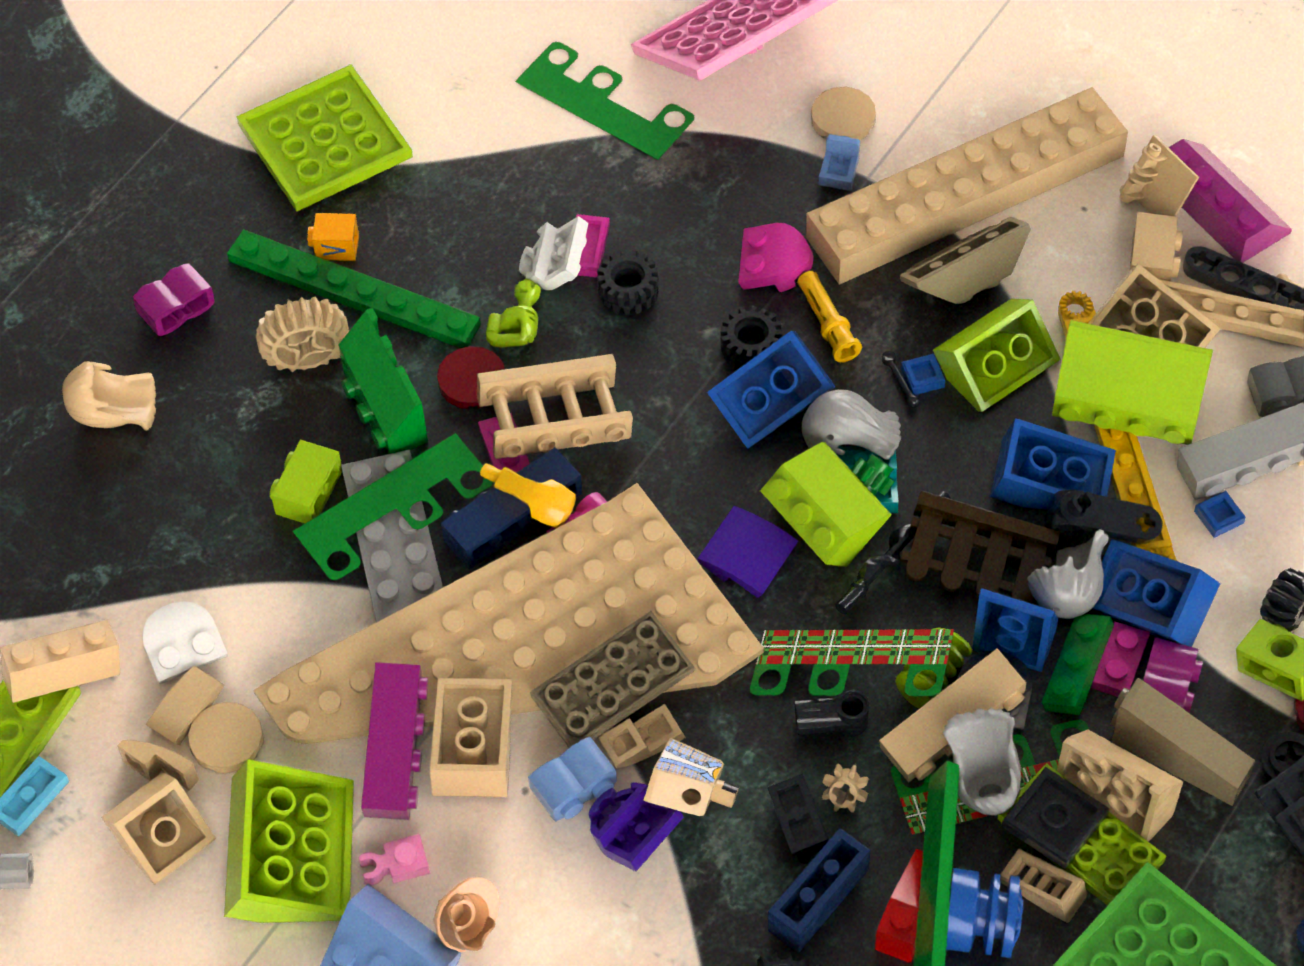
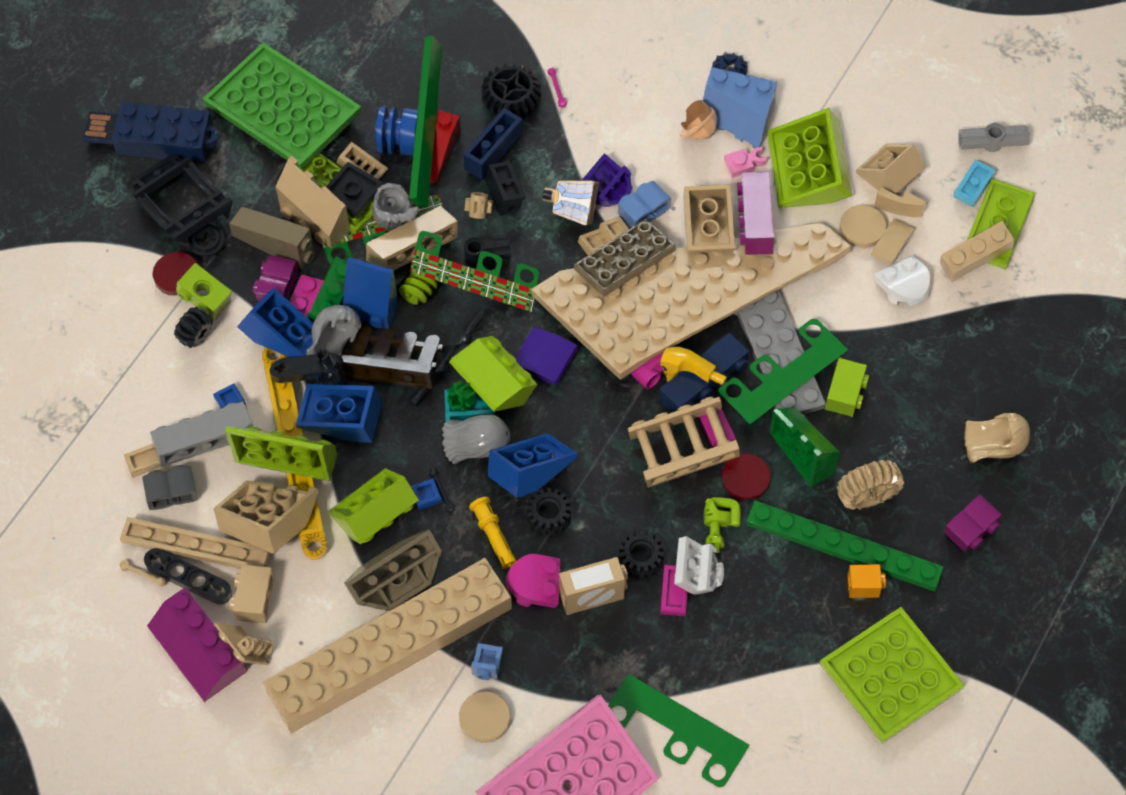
camera: 175 degrees right, 5 degrees up
(697, 228) = (592, 585): none -> tan brick

